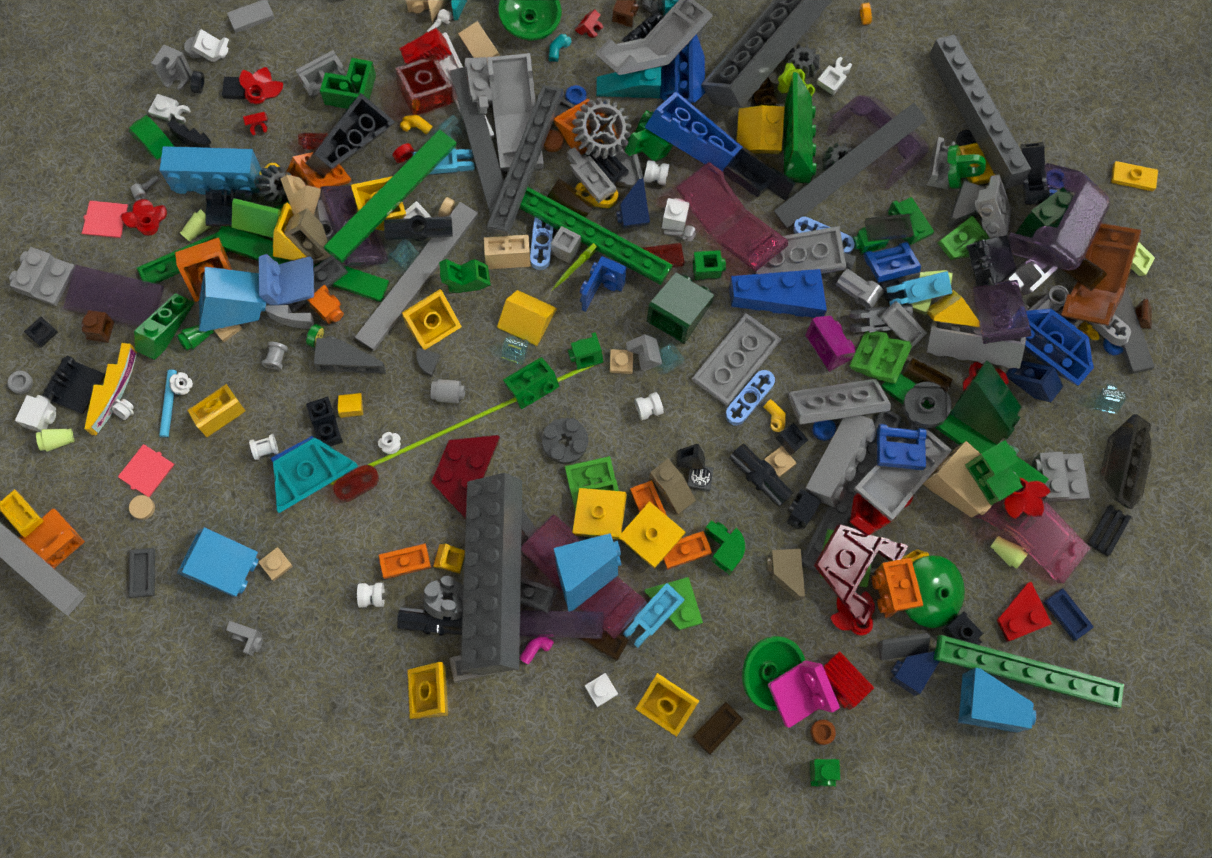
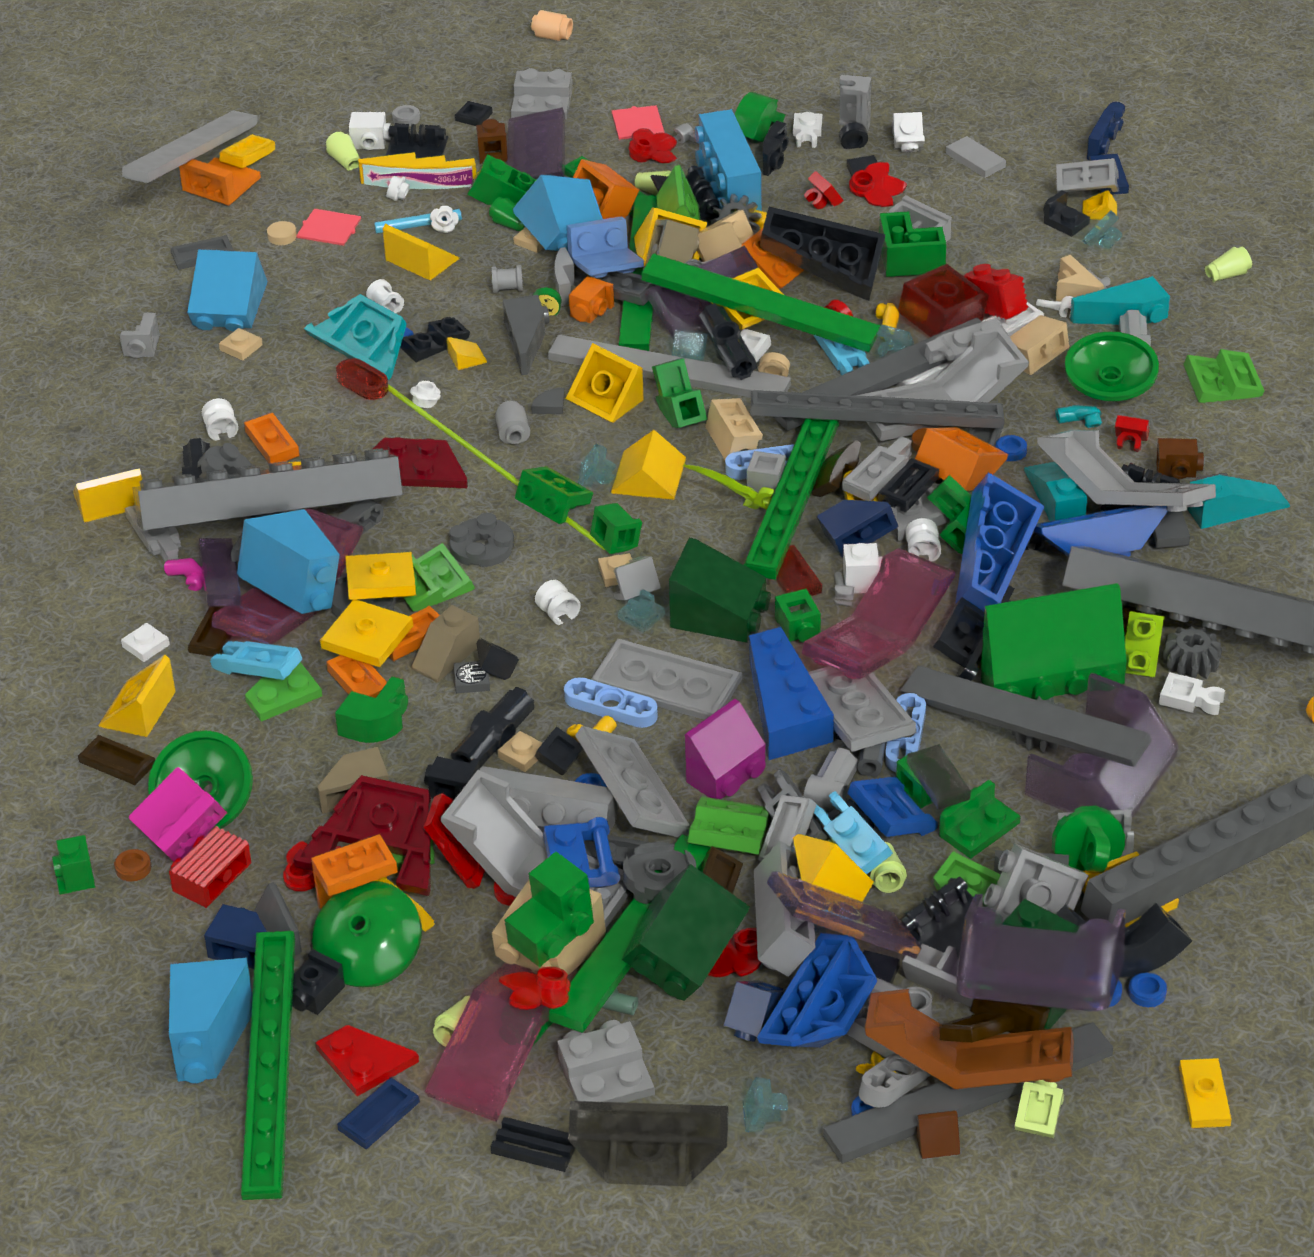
camera: 80 degrees right, 30 degrees down
(595, 121) = (948, 455): light grey gear -> none
(606, 272) = (714, 506): blue bracket -> none

